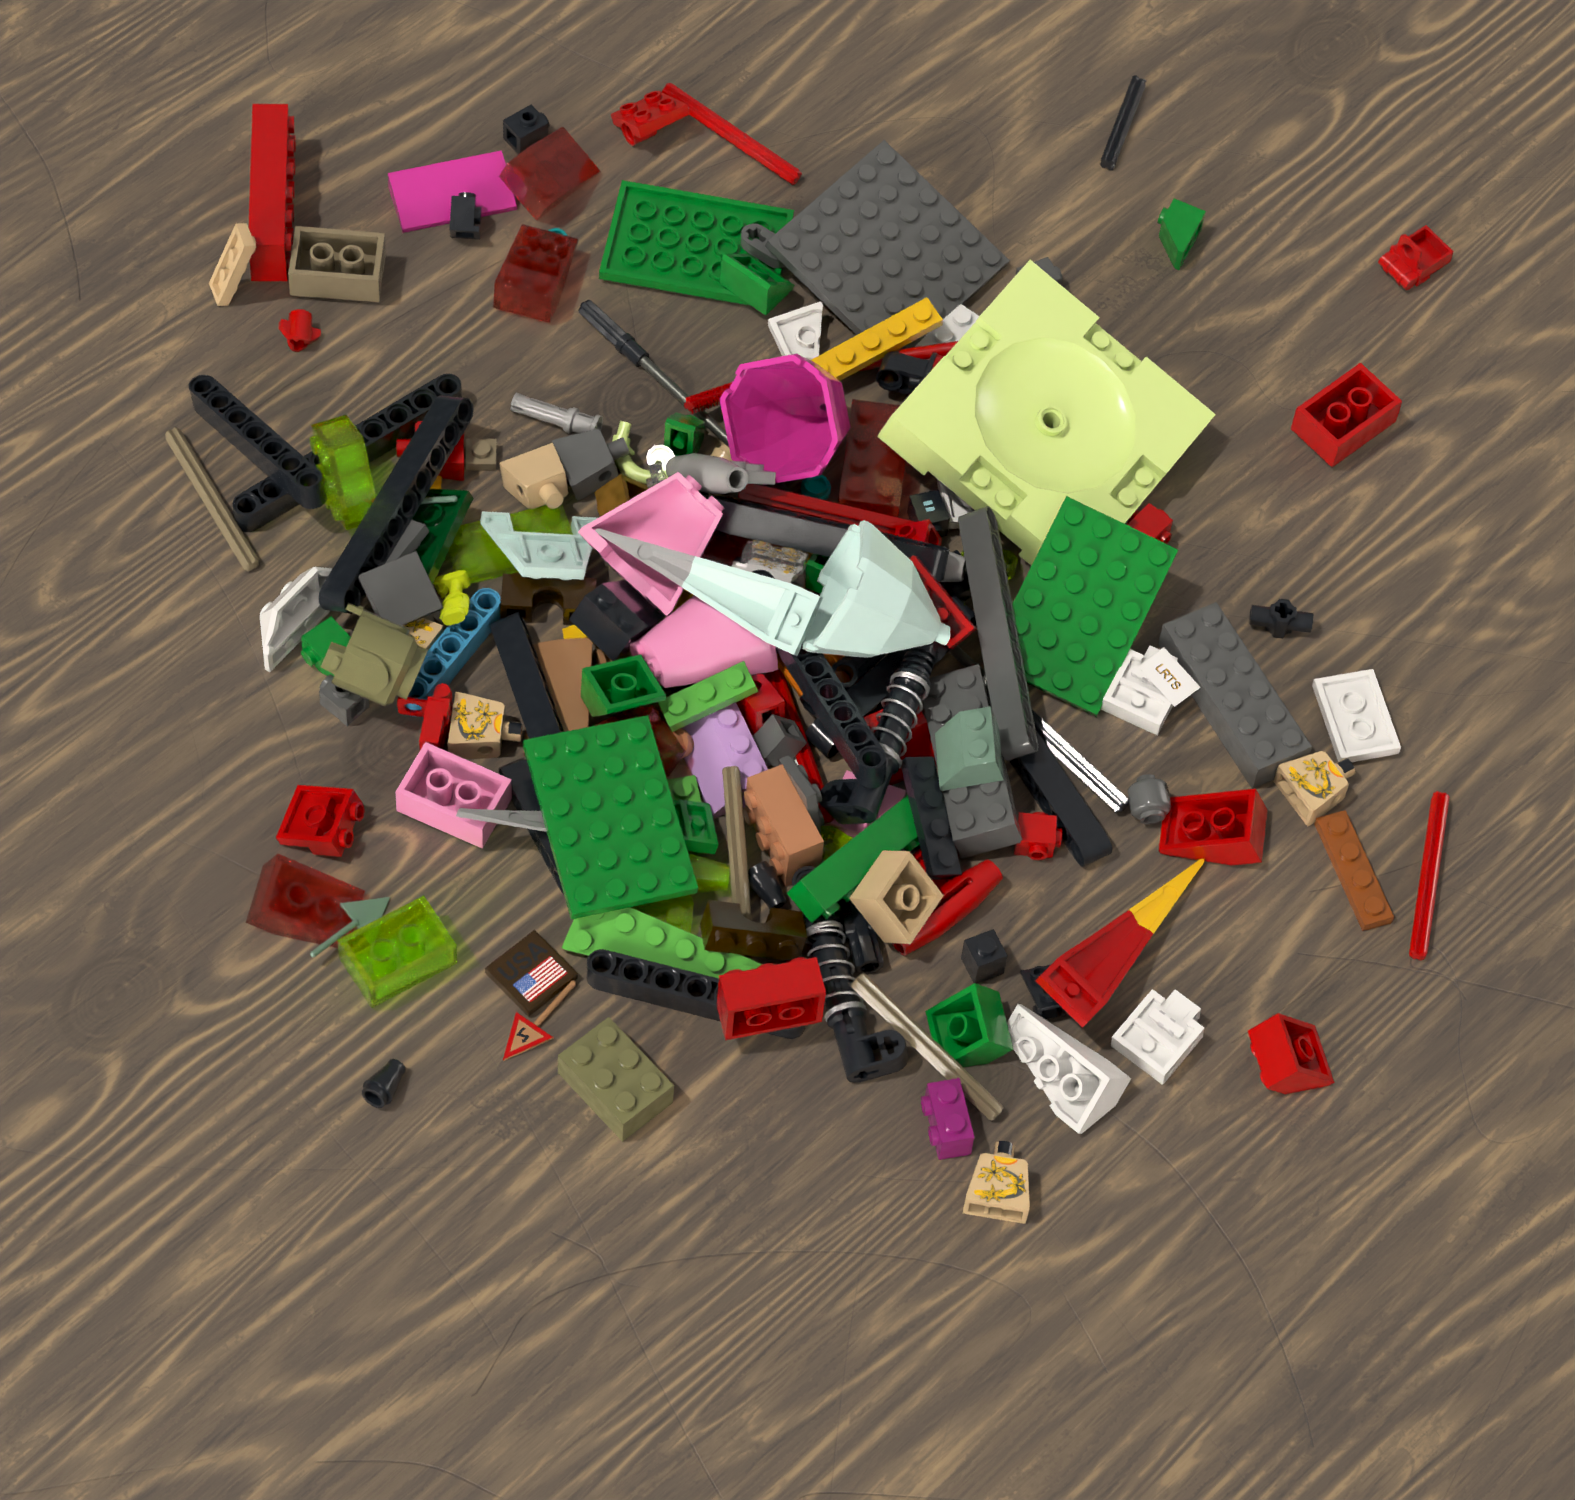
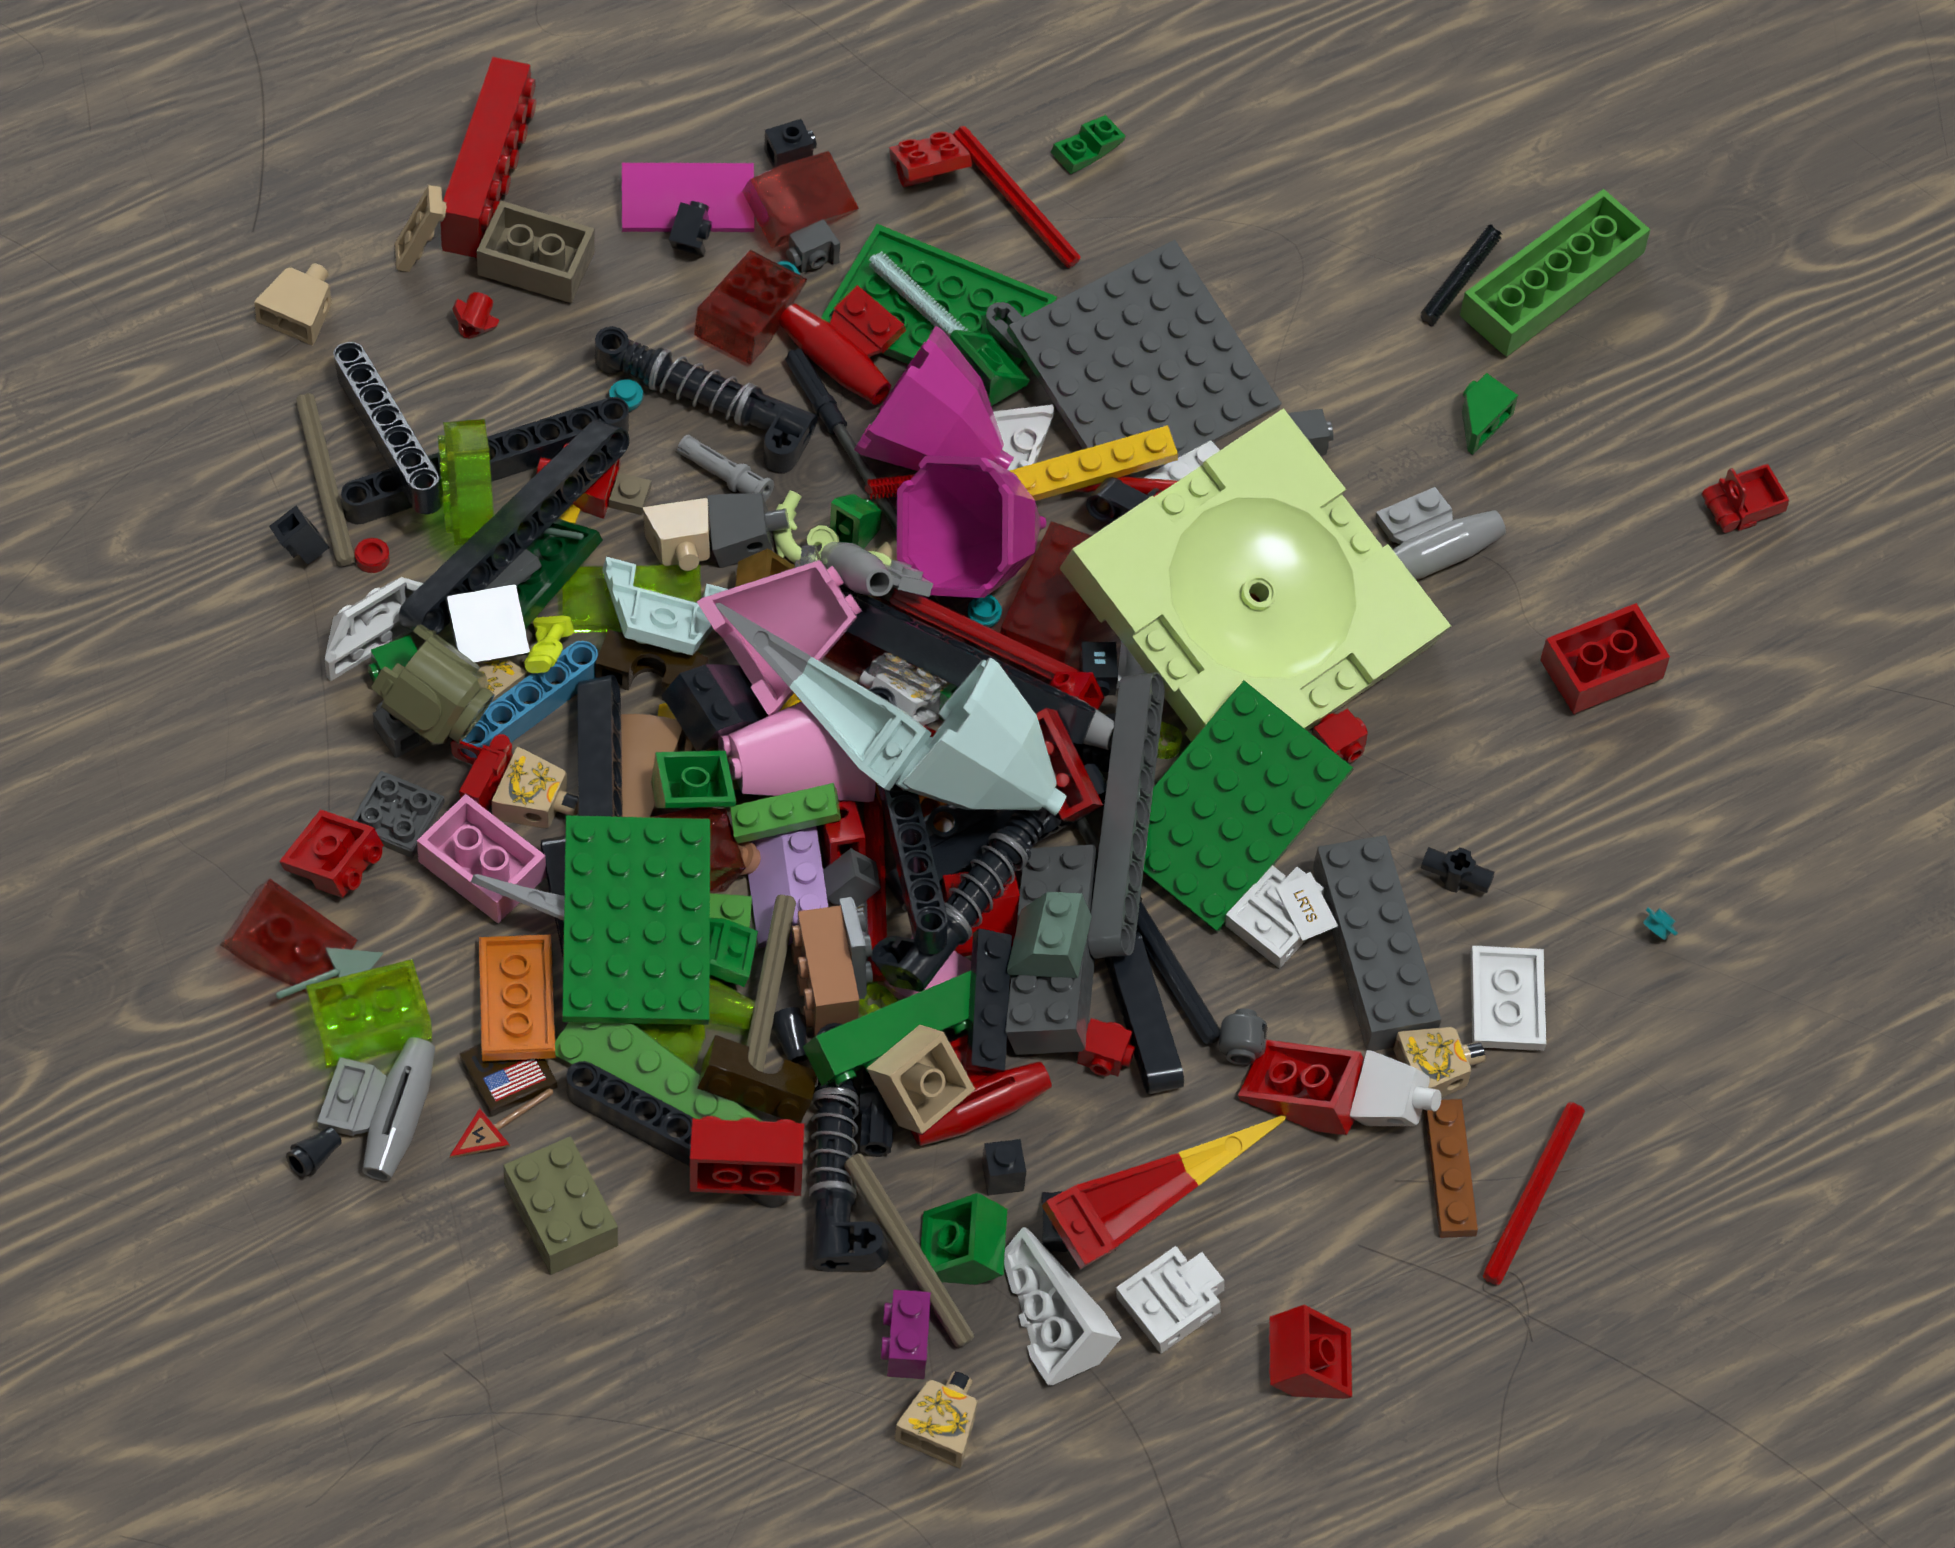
camera: 15 degrees right, 0 degrees up
(139, 352) = (296, 303): none -> tan torso
(207, 551) = (299, 535): none -> black brick
(273, 555) = (372, 555): none -> red tile
(367, 770) = (399, 812): none -> dark grey tile
(434, 1029) = (382, 1105): none -> light grey plate
(453, 366) = (629, 391): none -> teal plate
(520, 908) = (516, 997): none -> orange tile
(523, 350) = (743, 402): none -> black piece
(574, 210) = (813, 247): none -> dark grey brick
(629, 285) = (844, 345): none -> red plate
(675, 235) = (913, 294): none -> light aqua axle
(724, 327) = (935, 411): none -> dark pink piece
(778, 78) = (1089, 145): none -> green slope
(1168, 343) = (1430, 535): none -> light grey plate
(1201, 104) = (1554, 272): none -> bright green brick
(1291, 817) = (1392, 1093): none -> white torso
(1460, 625) = (1660, 923): none -> teal plate

